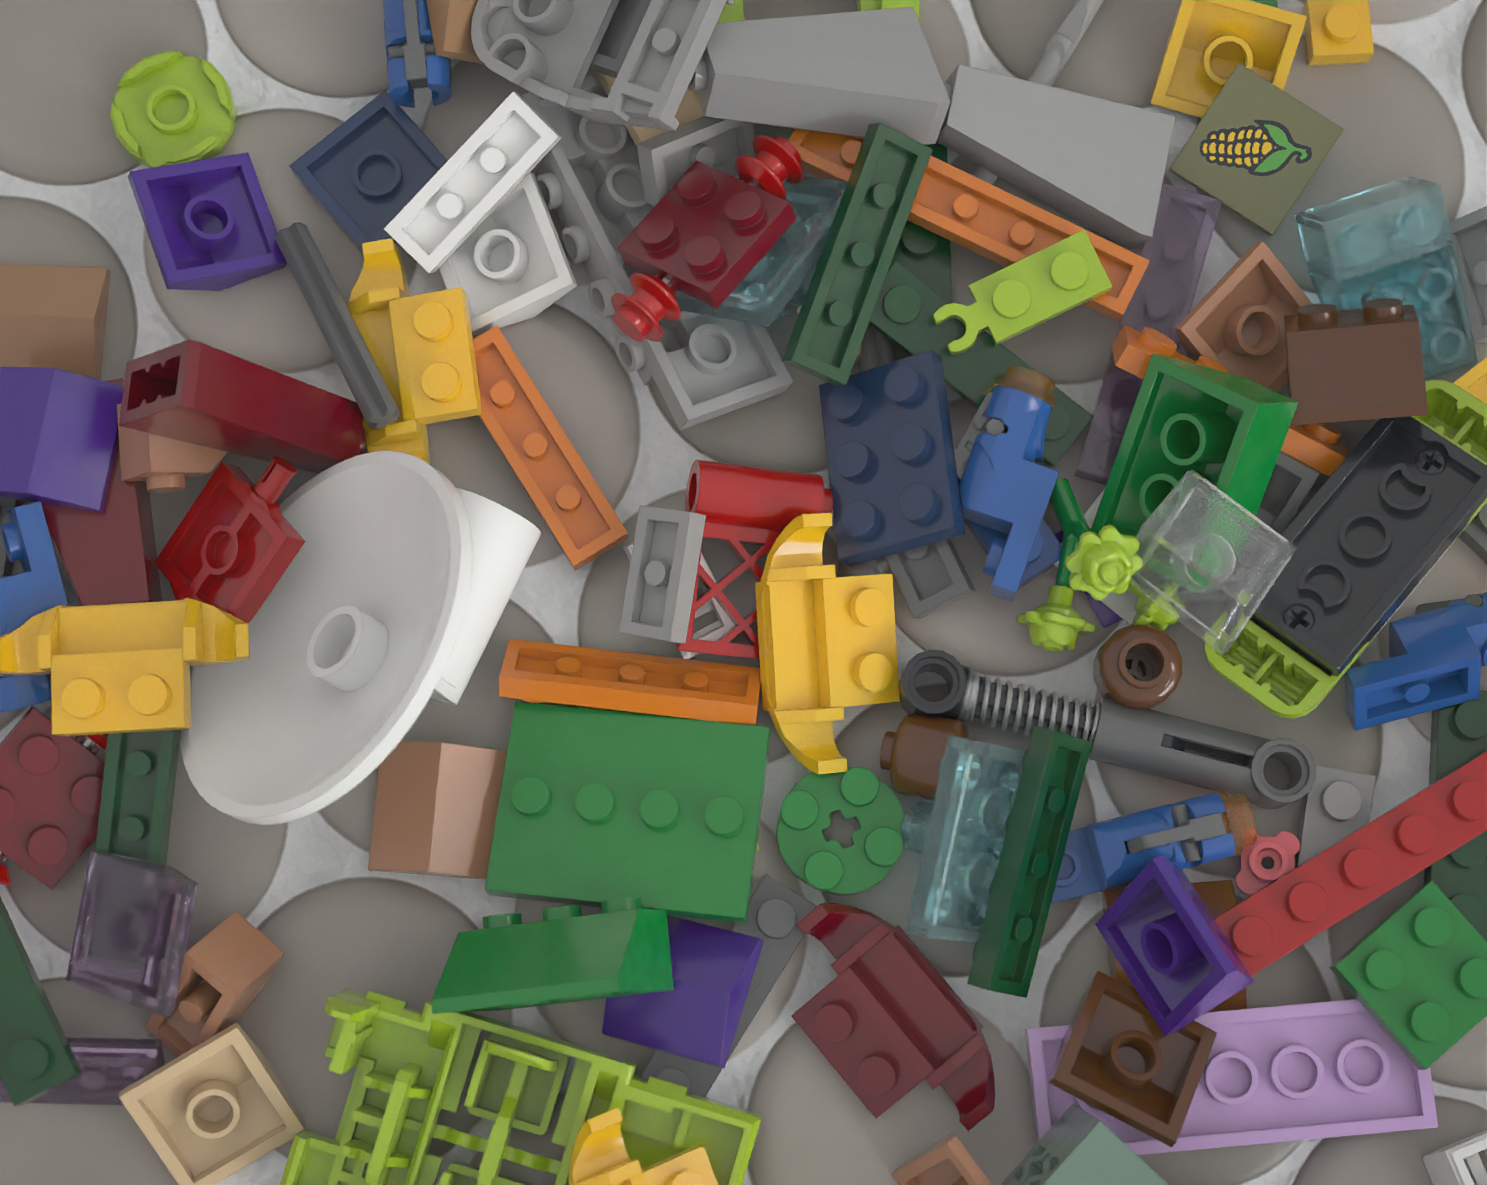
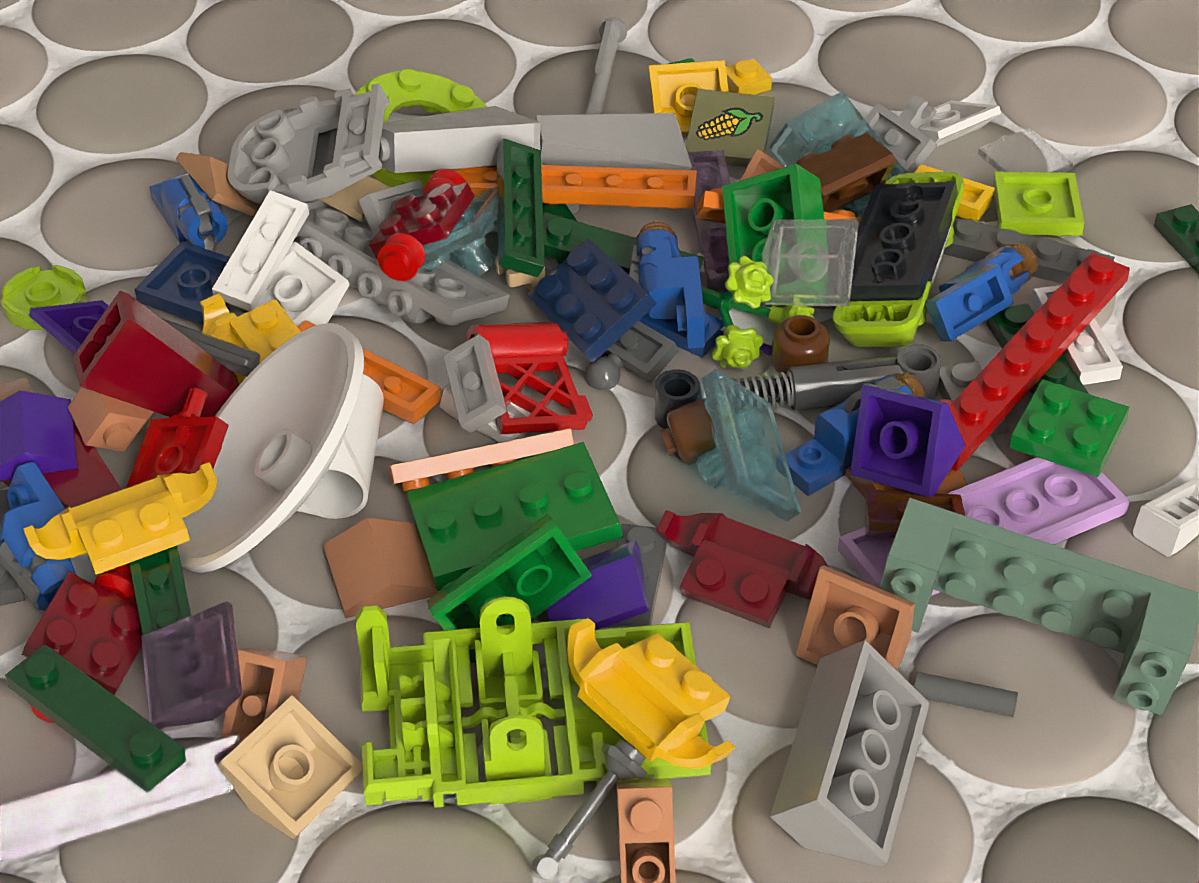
camera: 20 degrees left, 35 degrees down
(821, 643) = (594, 394): yellow plate -> none
(826, 864) = (657, 471): green plate -> none
(1029, 292) = (631, 200): lime plate -> none
(1029, 862) = (790, 447): dark green plate -> none

